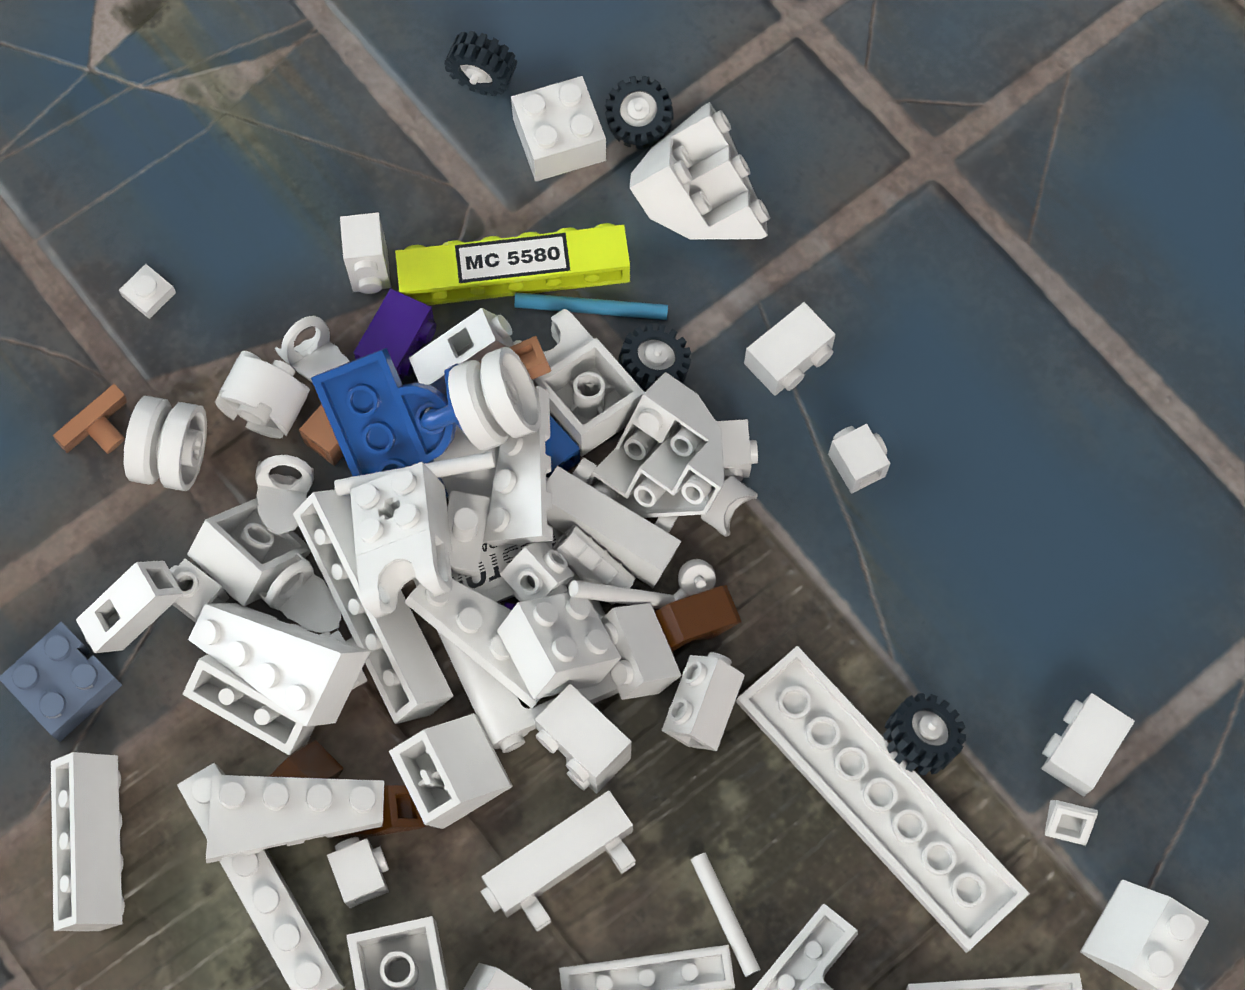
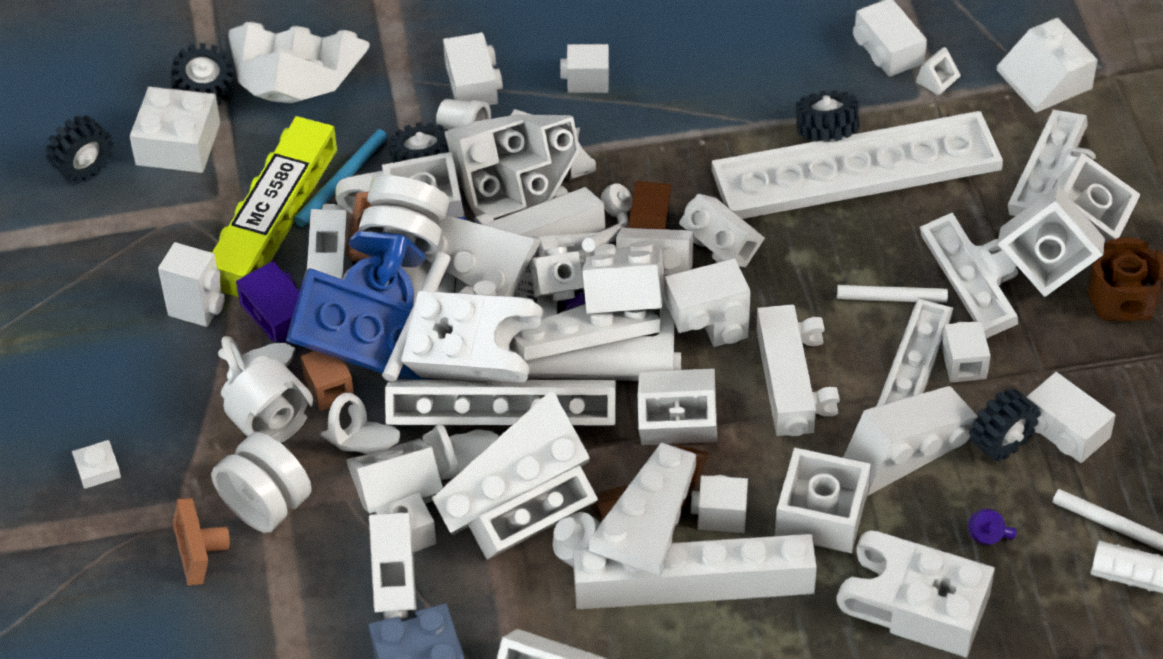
camera: 60 degrees left, 20 degrees down
(247, 756) = (573, 534): none -> white piece
(718, 378) = (460, 112): none -> white piece

